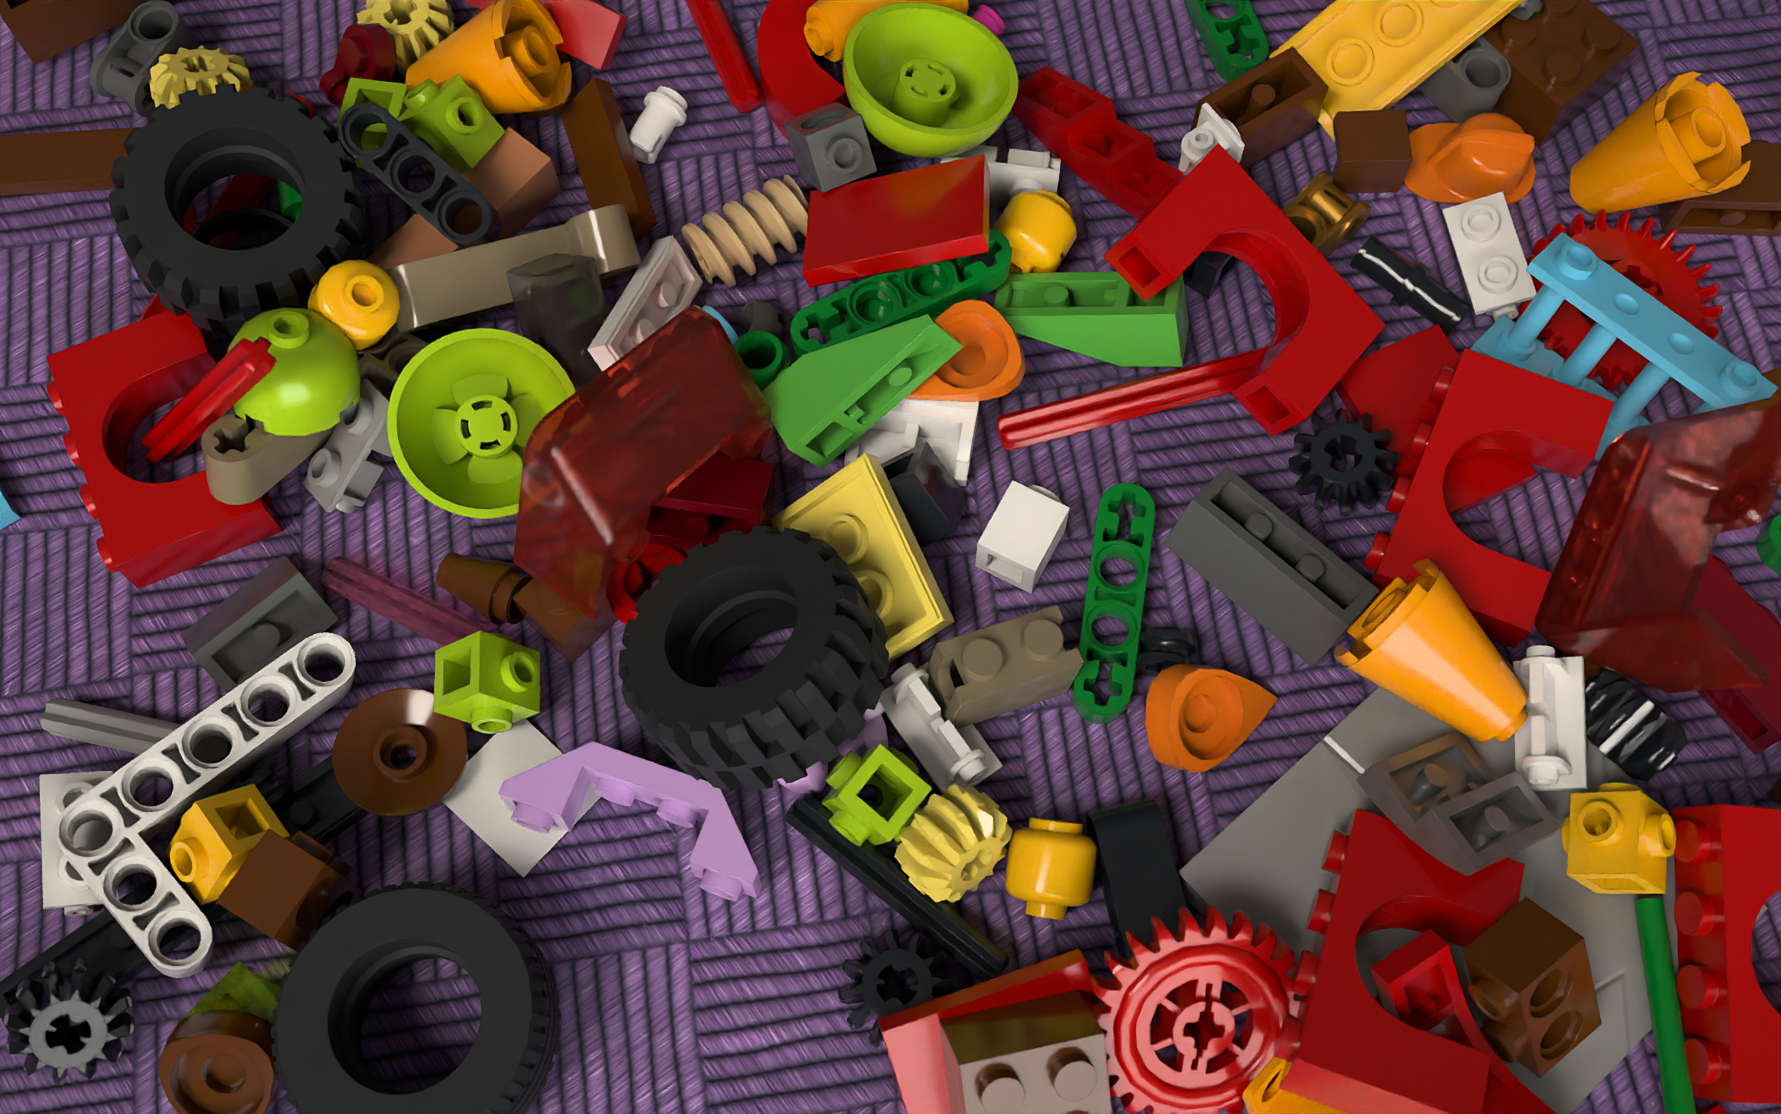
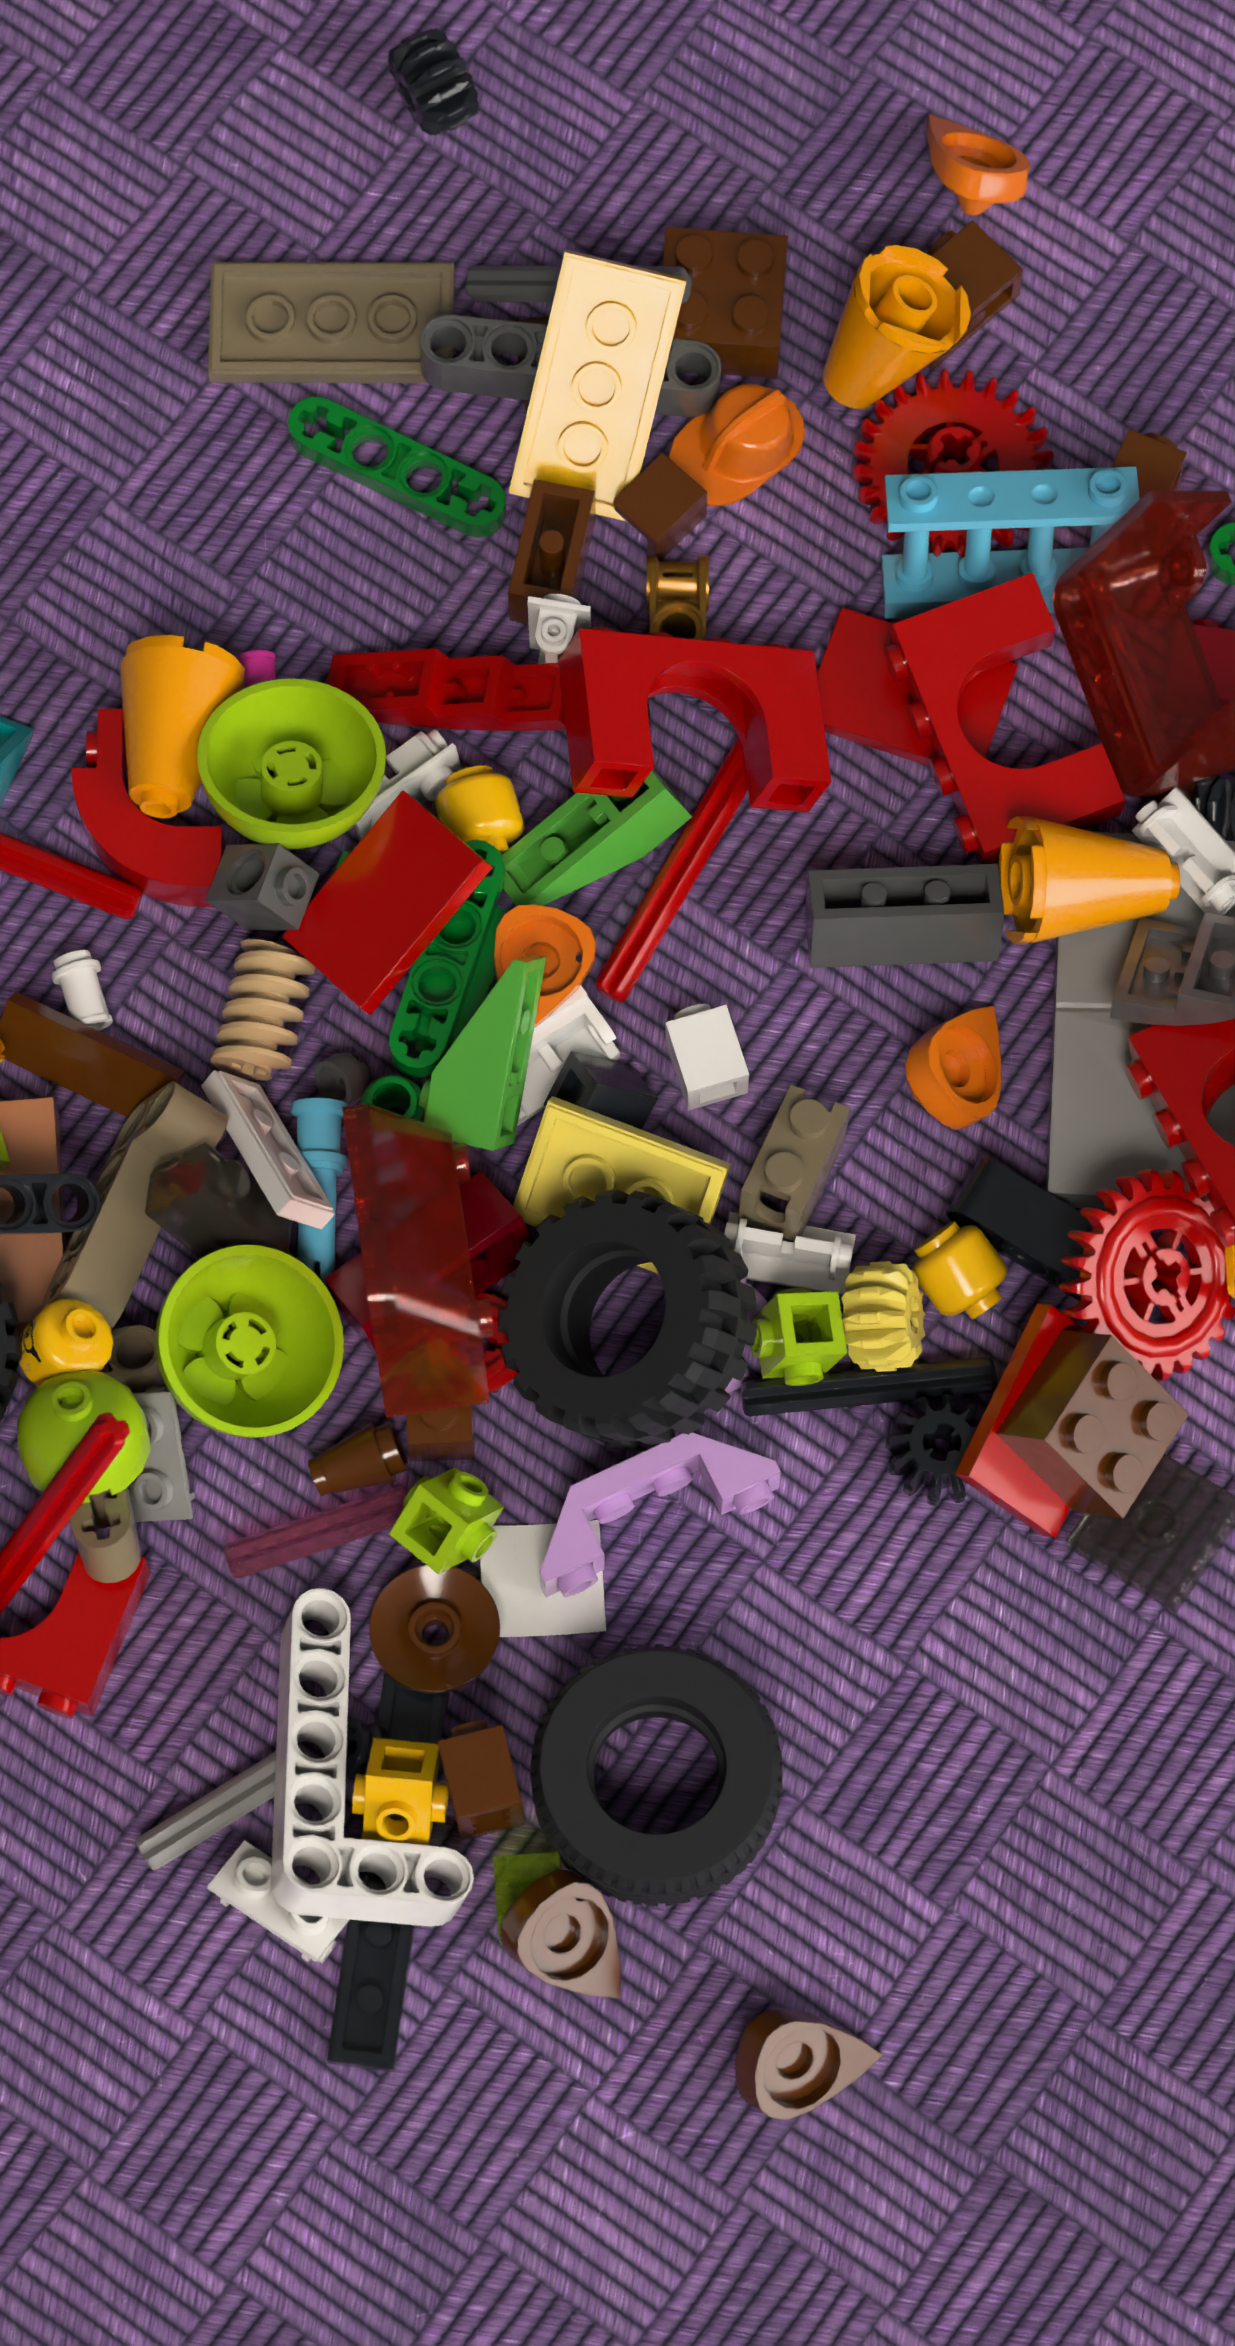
camera: 45 degrees left, 5 degrees up
(55, 1040) = (418, 2008): black gear -> none
(257, 624) = (222, 1648): dark grey panel -> none
(1114, 601) = (808, 1047): green beam -> none
(1164, 649) = (888, 1047): black bush -> none
(1369, 469) = (892, 769): black gear -> none
(1410, 284) = (792, 592): black pin -> none
(1490, 256) = (830, 517): white hinge -> none

